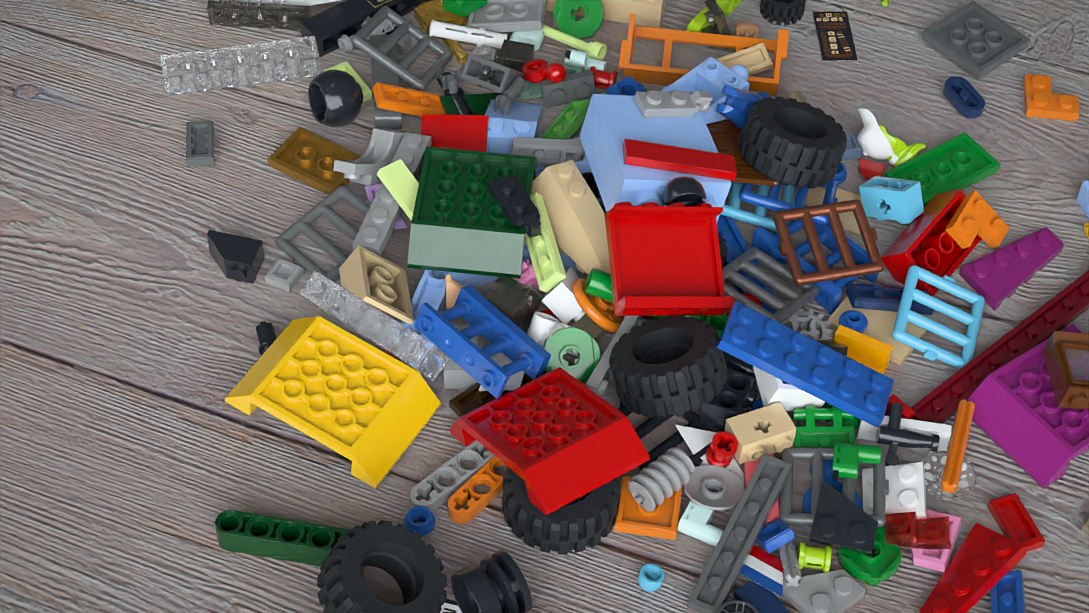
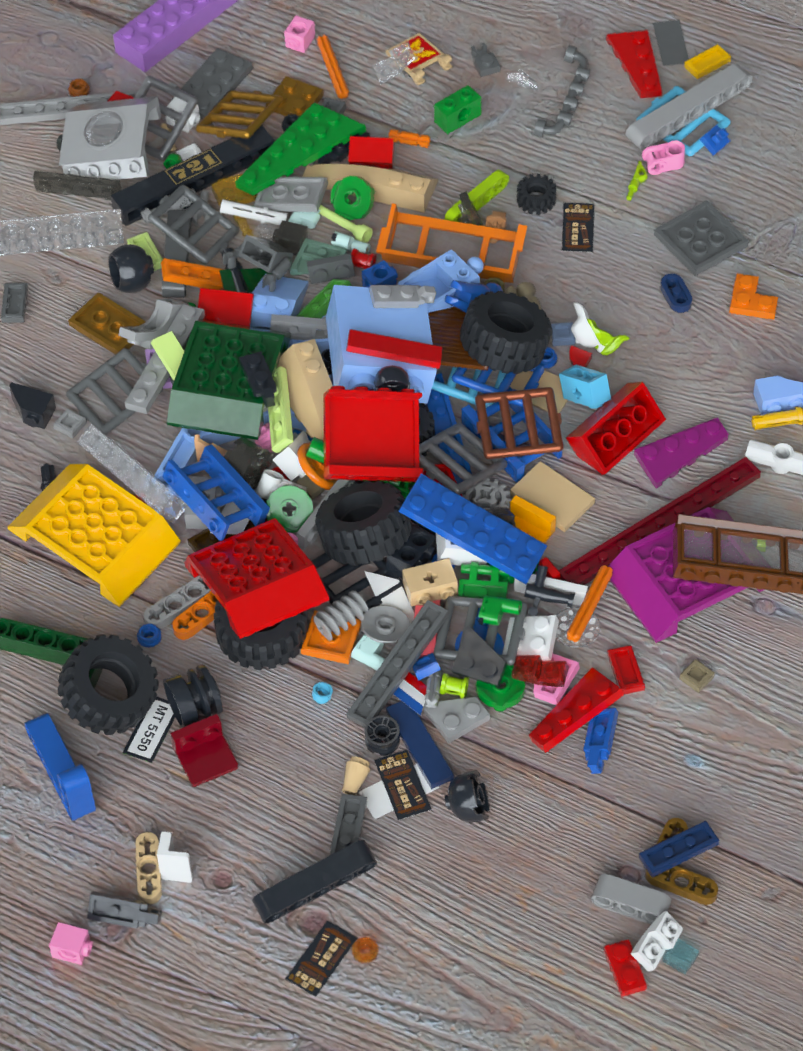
camera: 10 degrees right, 5 degrees up
(377, 283) = (140, 438): tan slope -> none
(538, 70) = (306, 251): red plate -> none
(722, 450) = (399, 588): red bush -> none
(753, 58) = (490, 250): tan tile -> none
(854, 320) = (535, 492): blue plate -> none
(881, 298) = (565, 474): dark blue tile -> none
(947, 167) = (641, 360): green plate -> none
(948, 285) = (573, 489): medium azure bar -> none
(975, 218) = (654, 406): orange plate -> none

